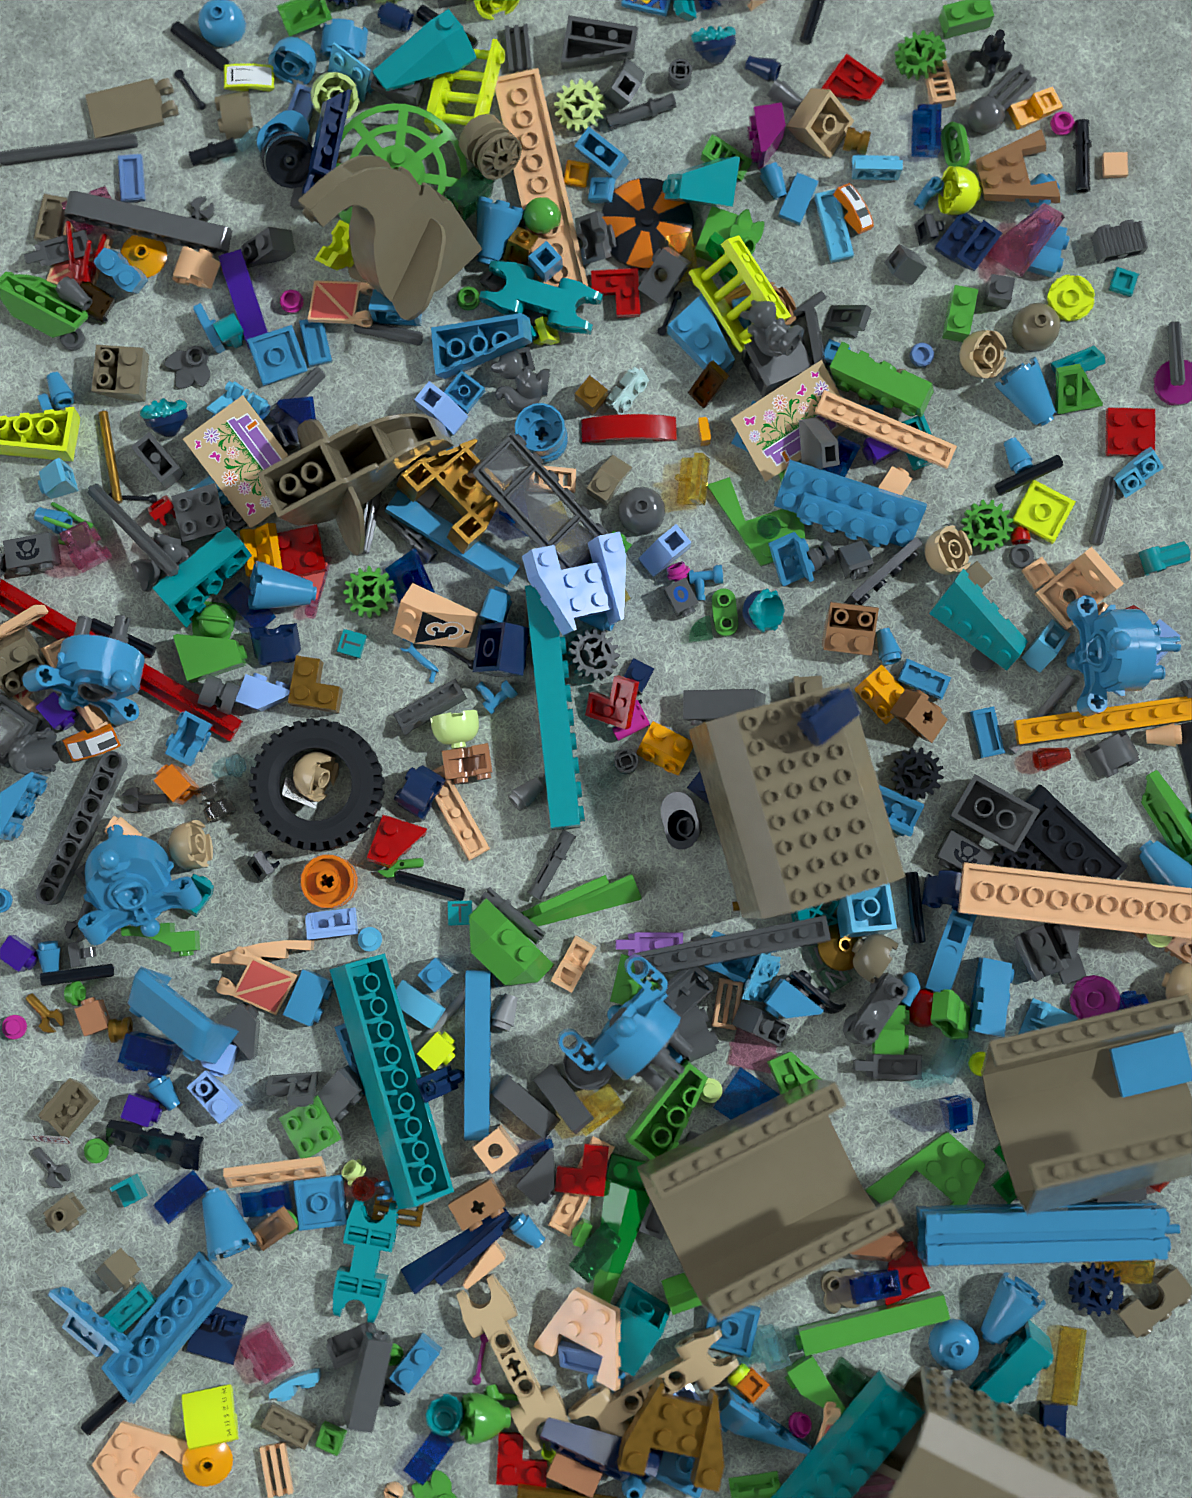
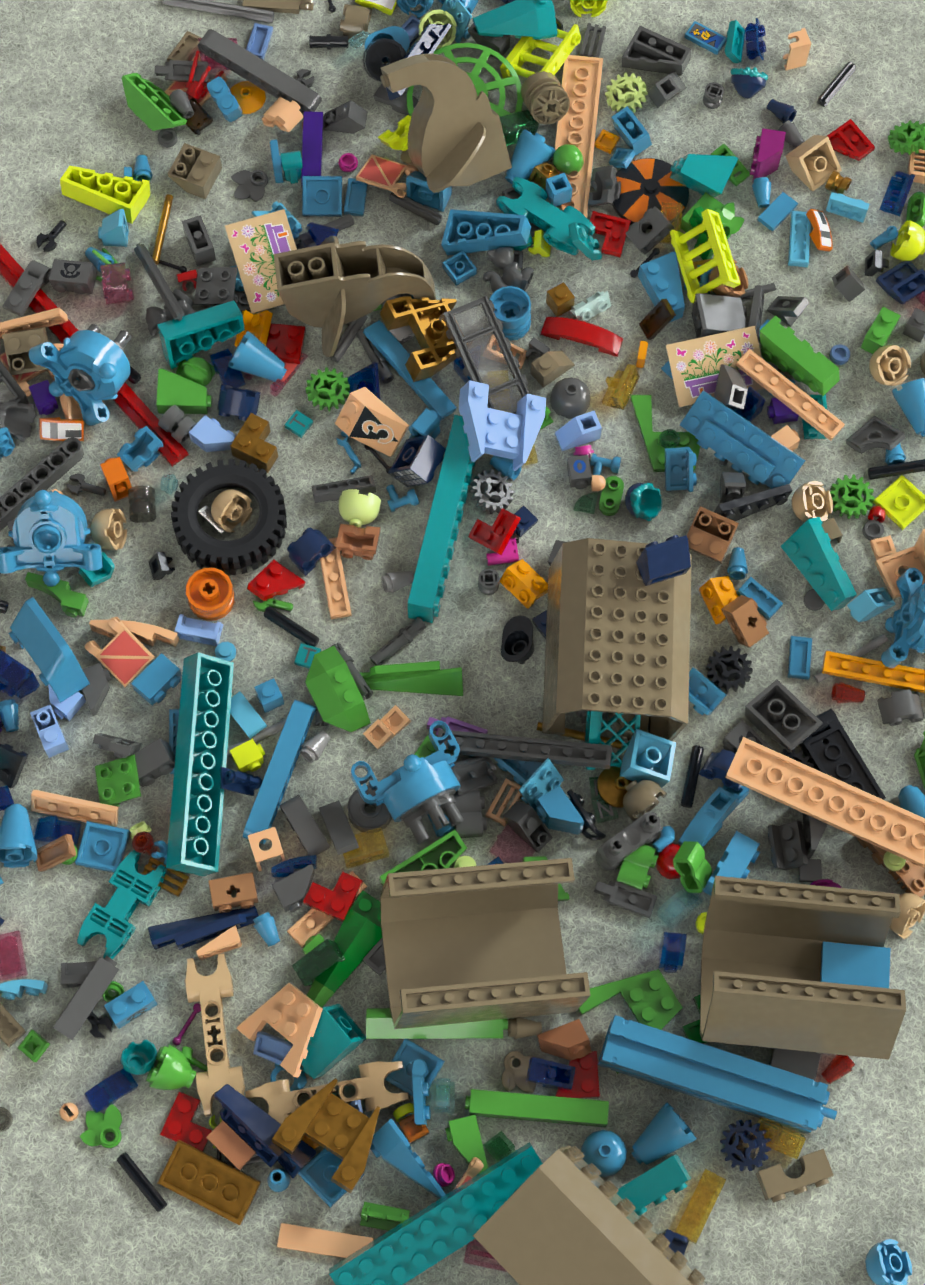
camera: 15 degrees right, 15 degrees down
(165, 417) = (217, 213): hair -> none
(441, 407) = (439, 271): light blue slope -> none
(468, 291) = (487, 197): bright green plate -> none
(588, 465) = (536, 348): none -> dark grey tile
(596, 317) = (584, 242): none -> teal hinge
(641, 111) = (673, 112): dark grey pin -> none
(706, 604) = (597, 483): none -> light nougat hinge
(748, 1353) = (420, 1091): none -> dark azure hinge
(771, 334) = (719, 289): dark grey animal -> none
(822, 555) = (706, 476): dark grey wheel -> none
(991, 442) = (875, 435): none -> dark grey tile

